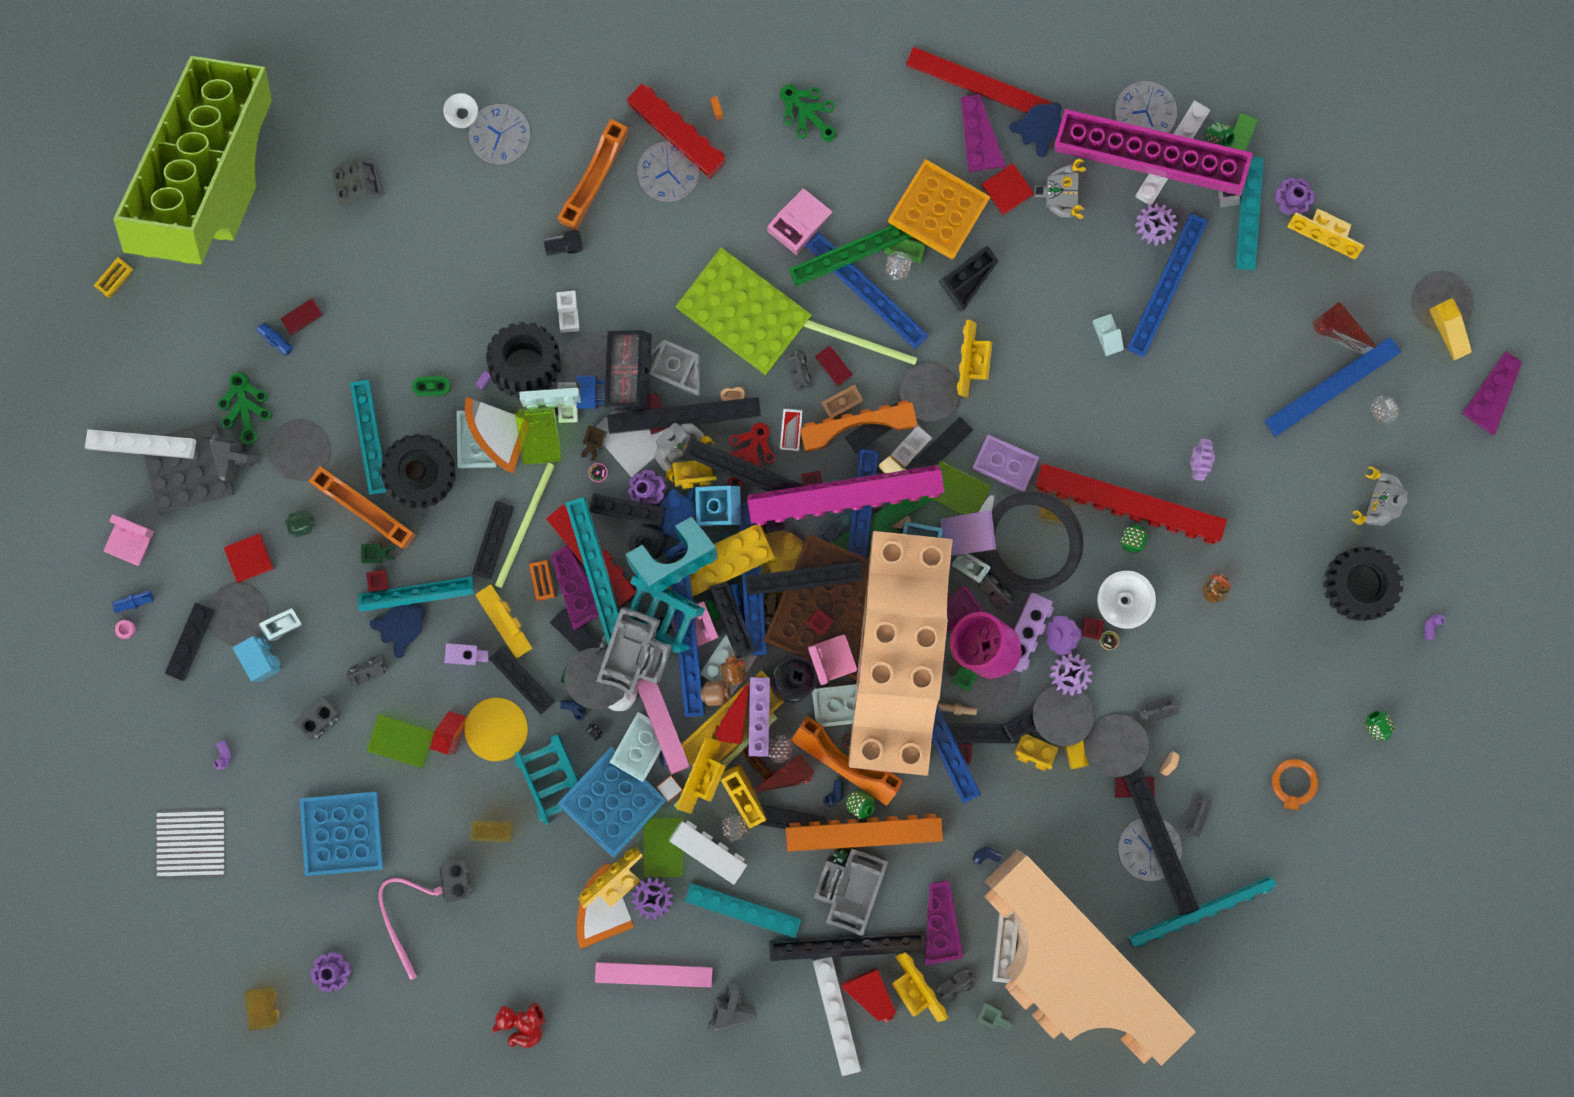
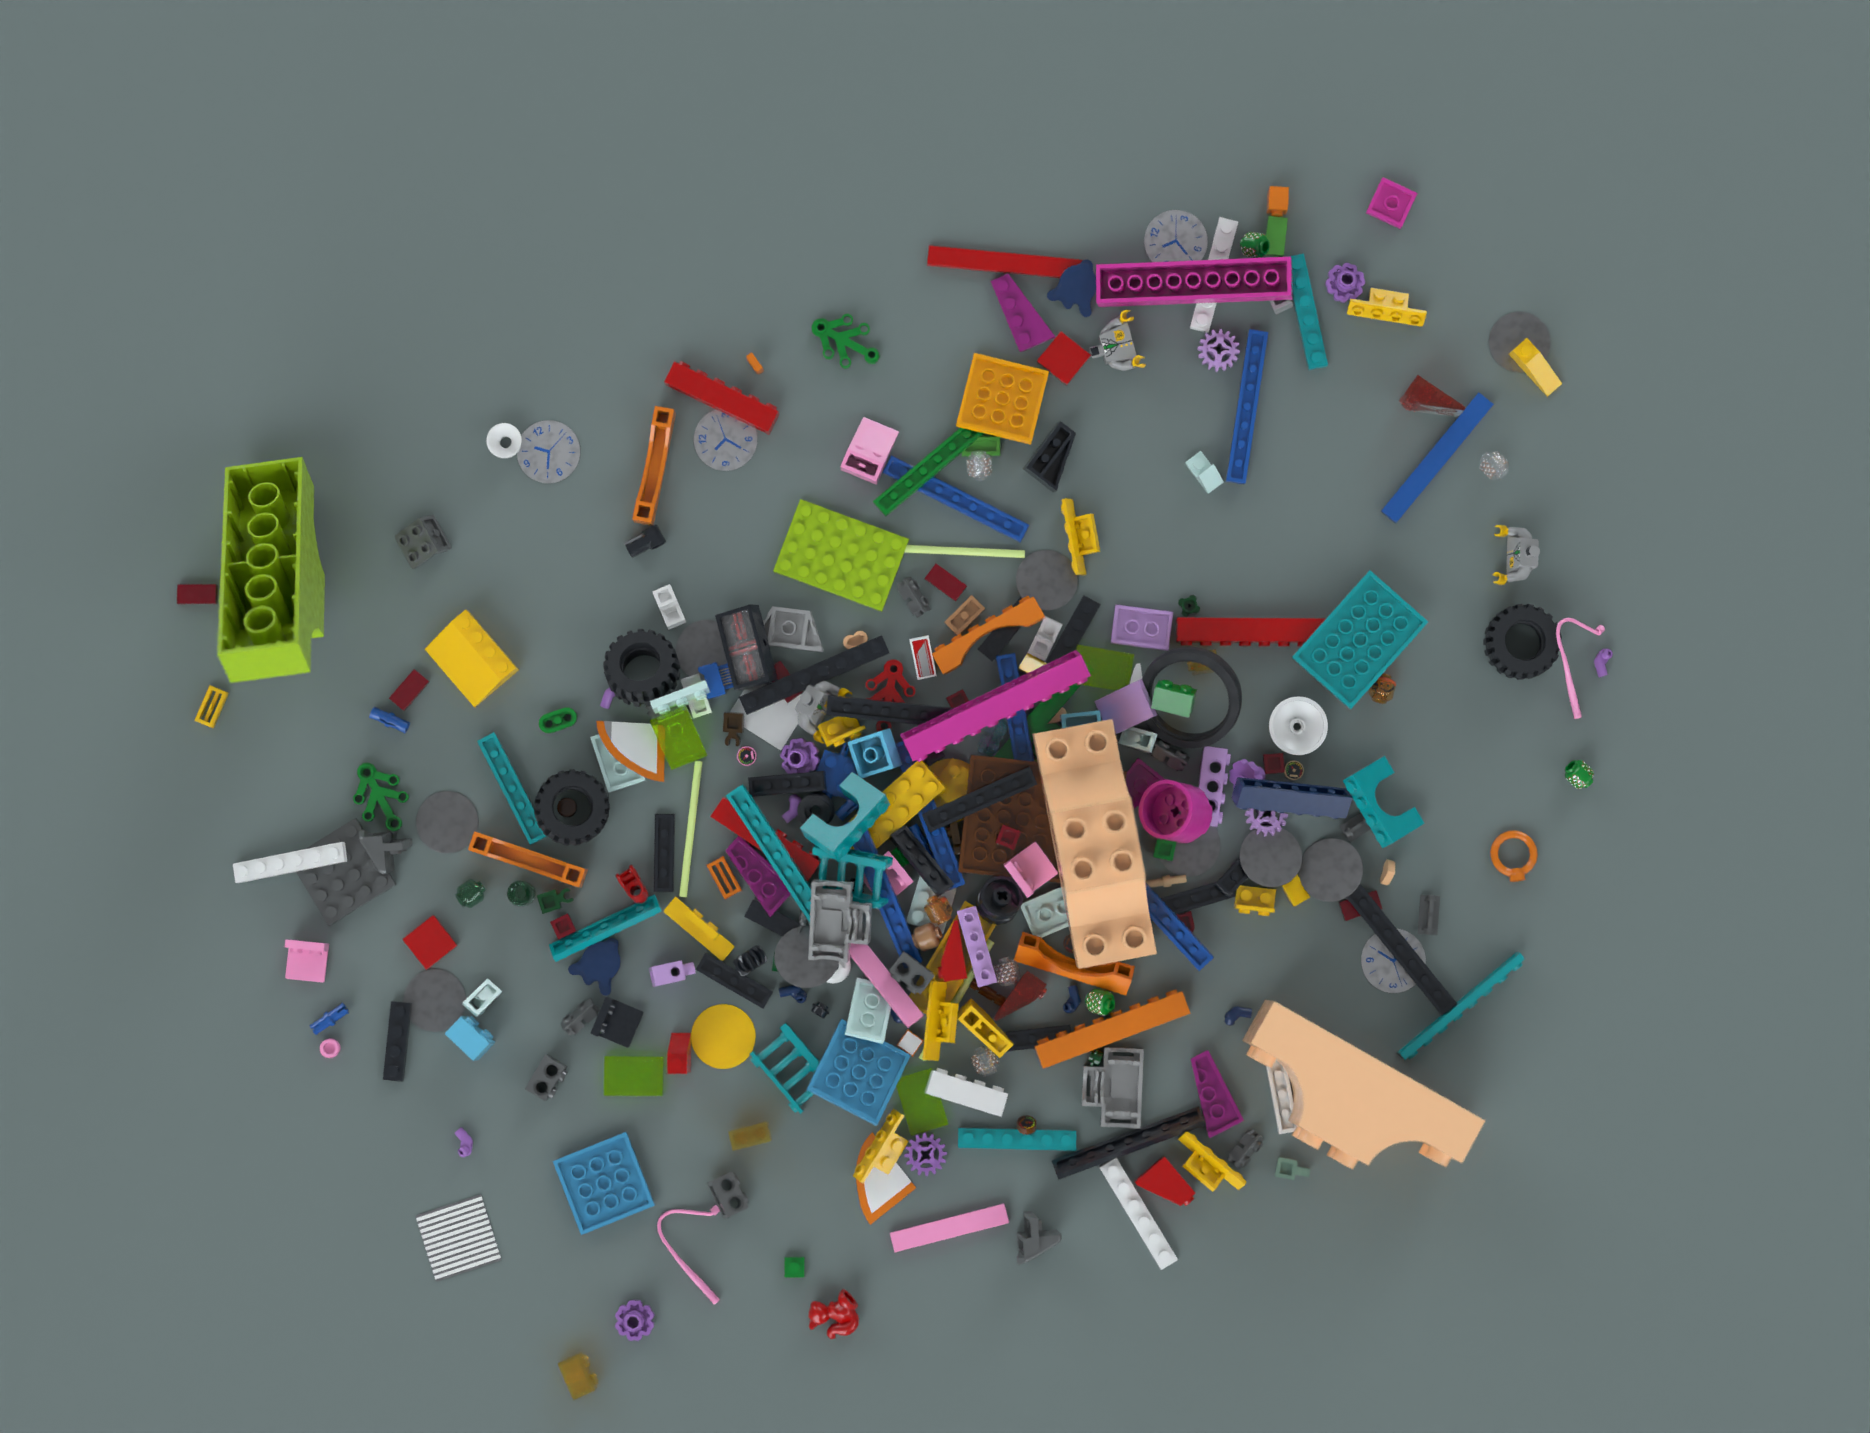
camera: 15 degrees left, 0 degrees up
(124, 166) = (196, 594): none -> dark red tile
(347, 538) = (521, 893): none -> clear green wheel
(368, 304) = (471, 658): none -> yellow slope
(399, 685) = (617, 1022): none -> black bracket
(453, 558) = (631, 882): none -> red piece
(496, 967) = (794, 1267): none -> green plate
(542, 665) = (750, 960): none -> black gear
(624, 539) = (792, 813): none -> medium lavender arm
(695, 720) = (915, 968): none -> dark grey brick
(756, 899) = (1026, 1124): none -> tile
(1016, 537) = (1174, 698): none -> brick
(1061, 456) = (1192, 601): none -> dark green plate
(1100, 666) = (1291, 798): none -> dark blue brick
(1134, 539) = (1287, 666): green head -> none
(1180, 720) = (1384, 826): none -> teal arch
(1202, 459) = (1331, 567): lavender gear -> none
(1209, 535) = (1360, 639): none -> teal plate
(1253, 101) = (1277, 200): none -> orange brick
(1360, 135) = (1391, 203): none -> dark pink plate
(1396, 639) = (1570, 686): none -> bright pink piece
(1492, 396) = (1594, 421): magenta wing -> none

